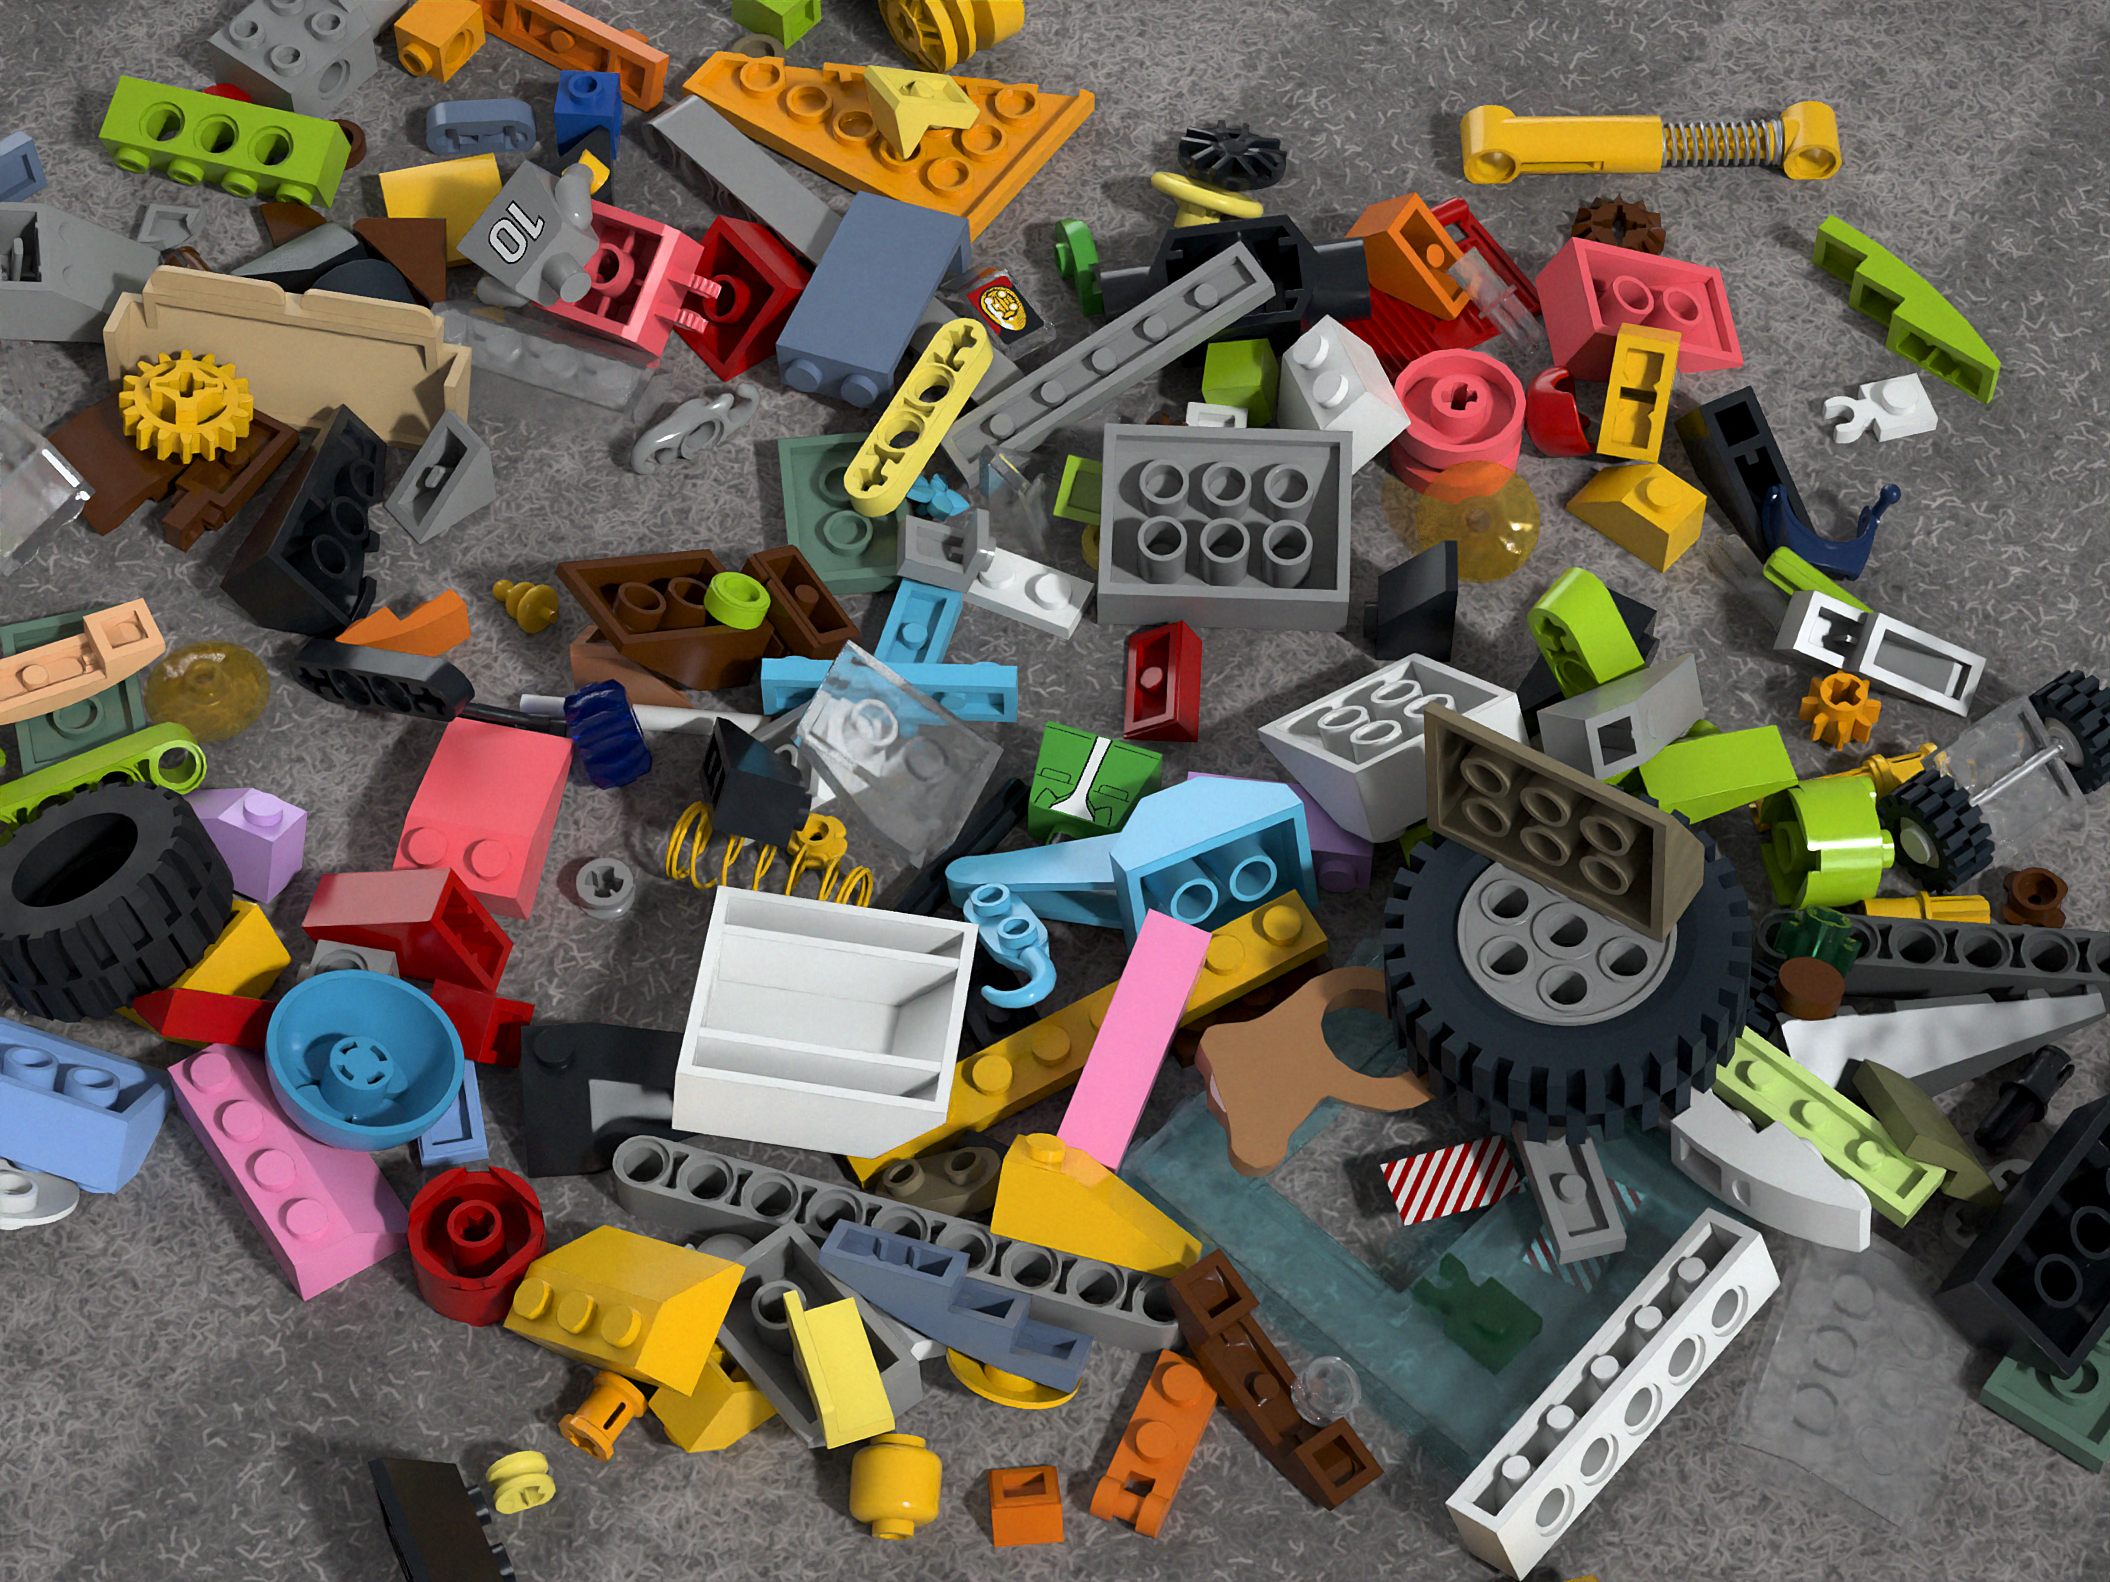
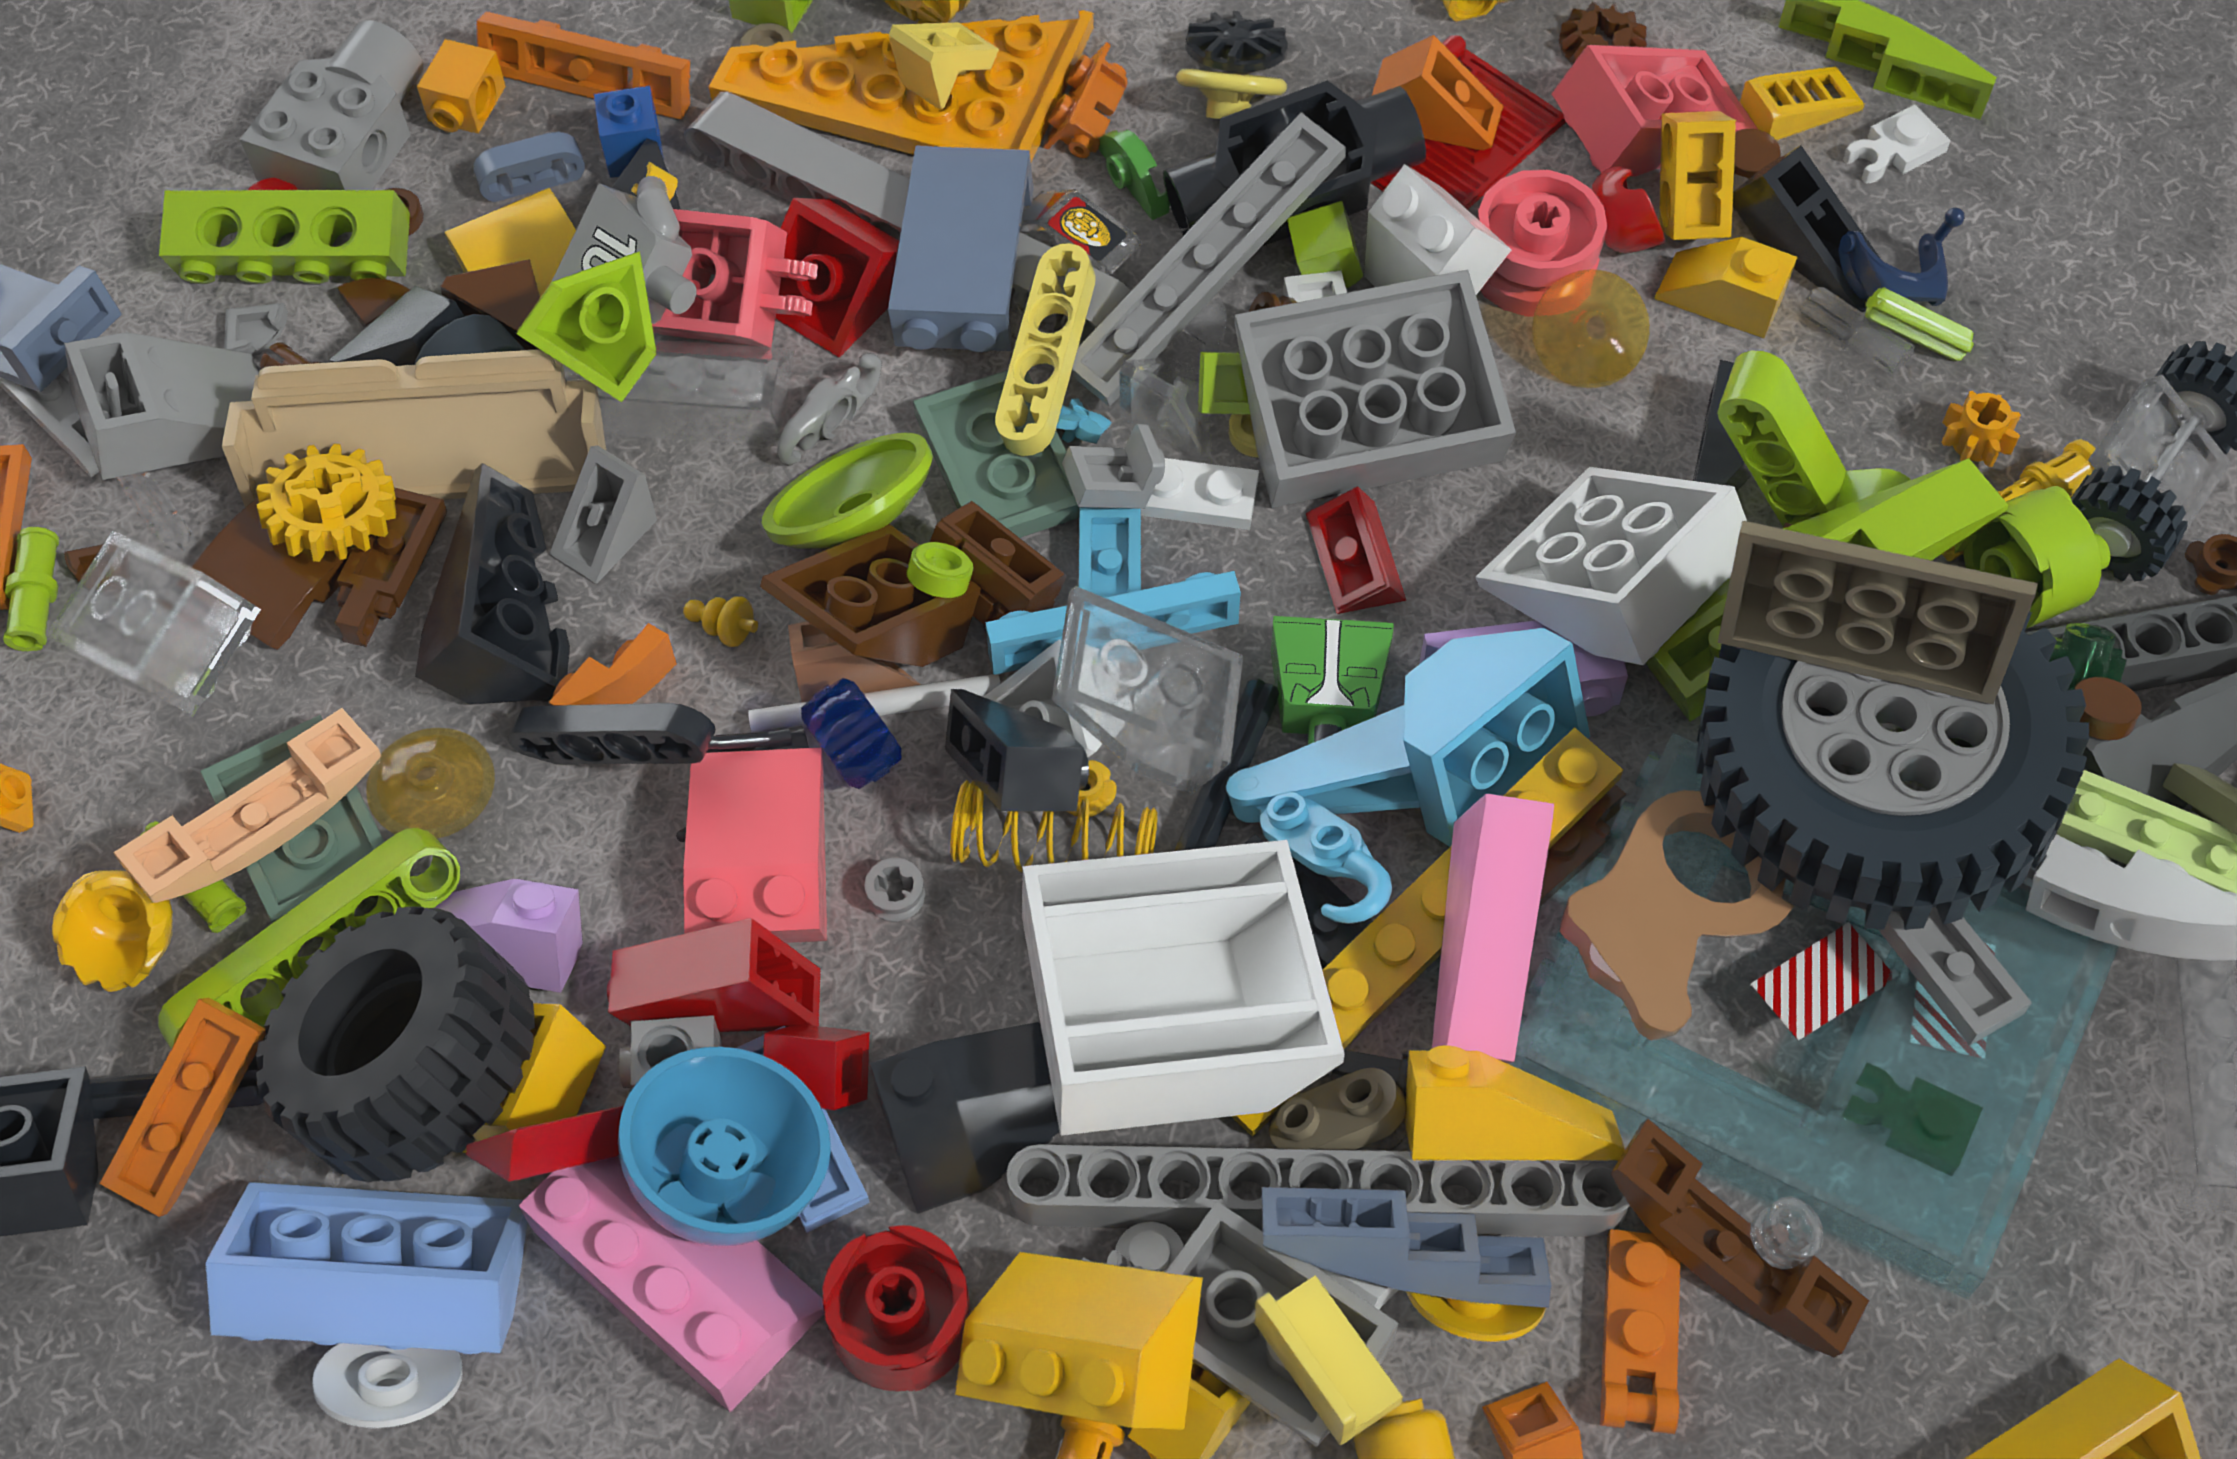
camera: 15 degrees left, 5 degrees up
(483, 294) = (597, 324): none -> lime slope
(683, 512) = (849, 493): none -> lime dish
(1071, 169) = (1093, 85): none -> orange hinge
(1416, 606) = (1573, 421): black slope -> none
(1498, 302) = (1528, 121): clear axle -> none
(1613, 1393) = (2071, 1167): white brick -> none
(1623, 720) = (1834, 487): light grey slope -> none
(1719, 379) = (1754, 151): none -> reddish brown tile
(1782, 359) = (1763, 92): none -> yellow slope
(1880, 650) = (1997, 361): light grey slope -> none
(1921, 906) = (2135, 598): yellow axle -> none

